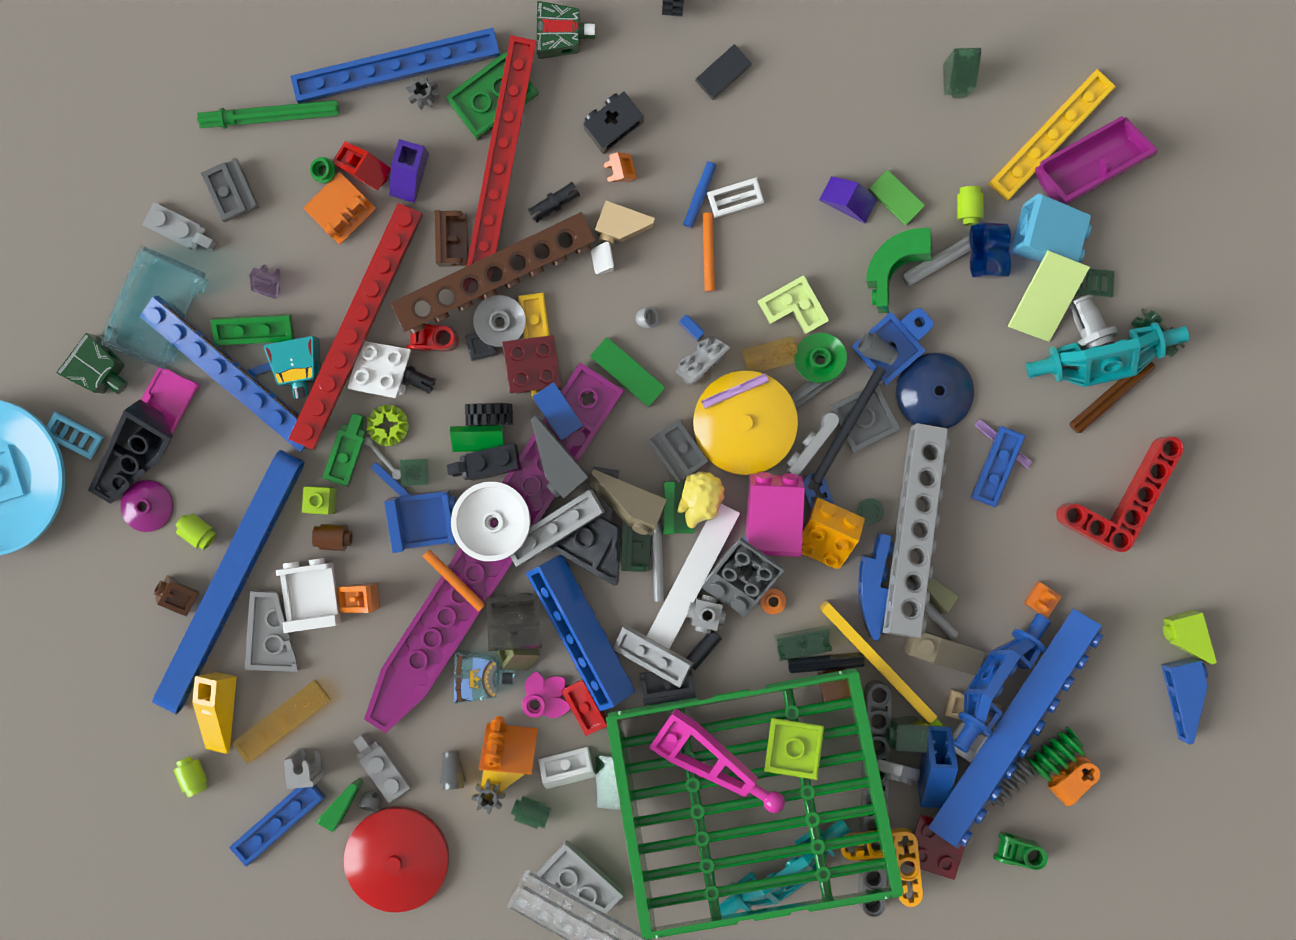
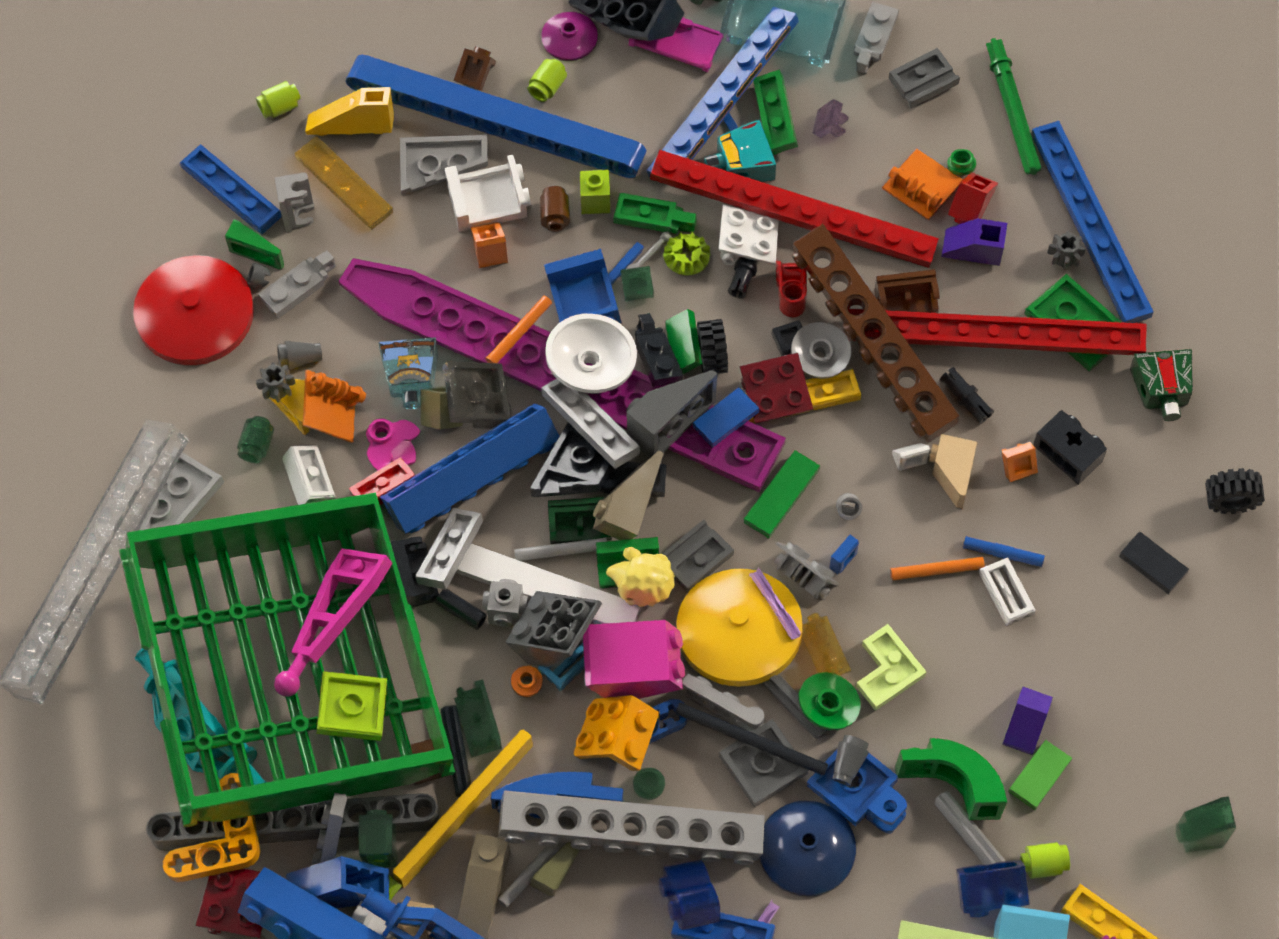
camera: 90 degrees right, 25 degrees down
(973, 489) = (690, 894): none -> clear blue brick

